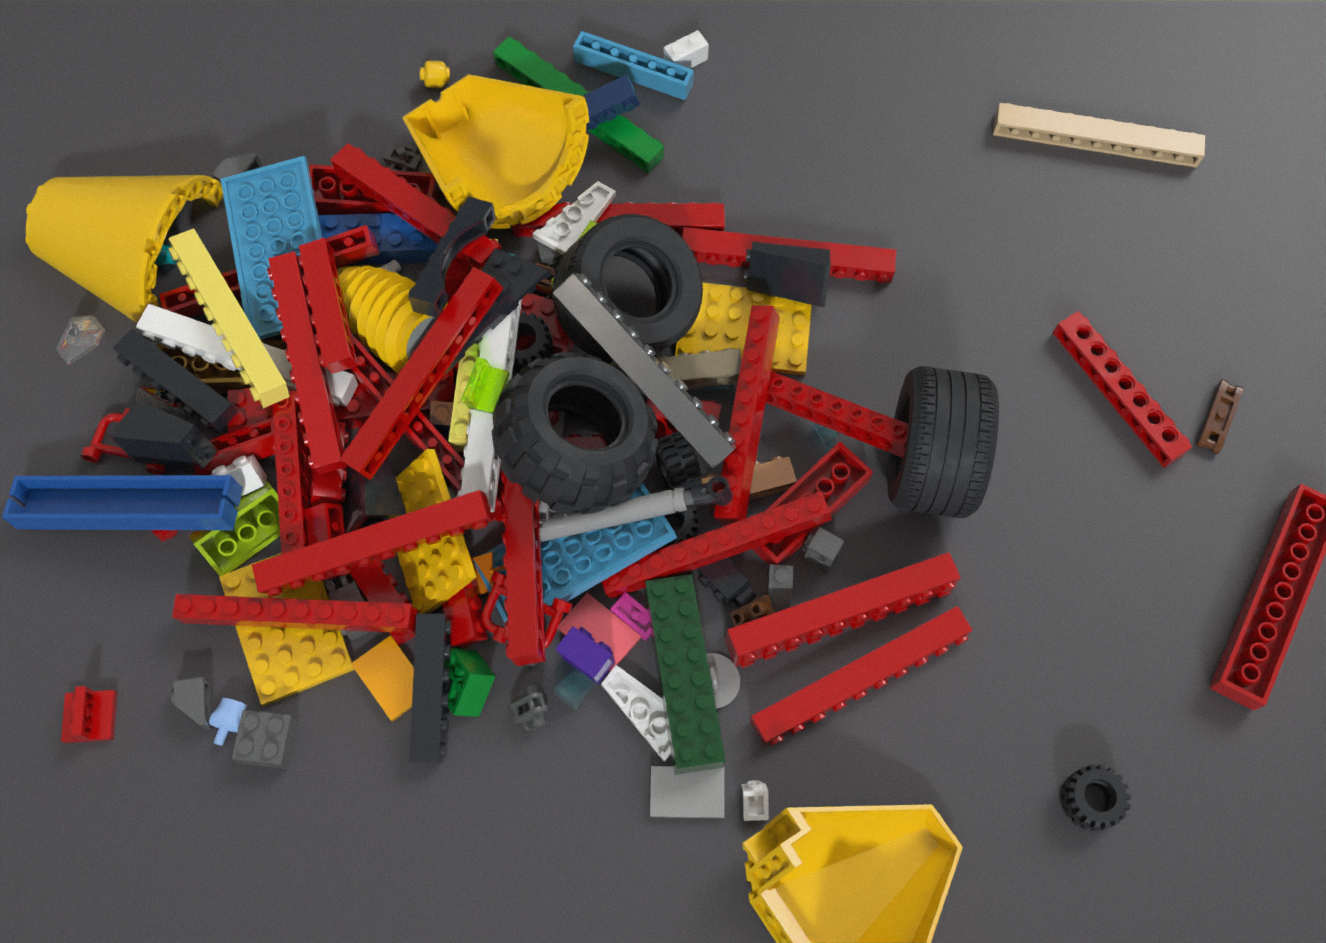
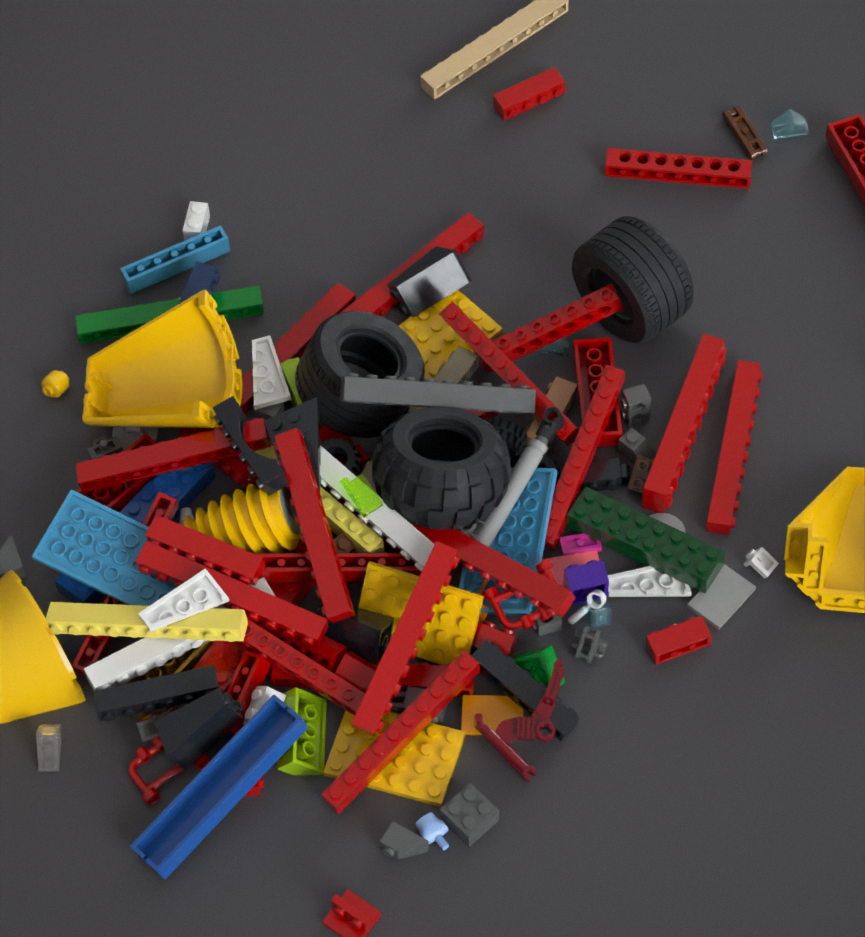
camera: 45 degrees left, 10 degrees down
(258, 329) = (186, 600): none -> white wing
(378, 721) = (524, 727): none -> dark red piece
(568, 677) = (584, 609): none -> white piece
(603, 787) = (678, 639): none -> red brick
(1073, 203) = (529, 93): none -> red brick
(1270, 450) = (789, 125): none -> clear light blue slope

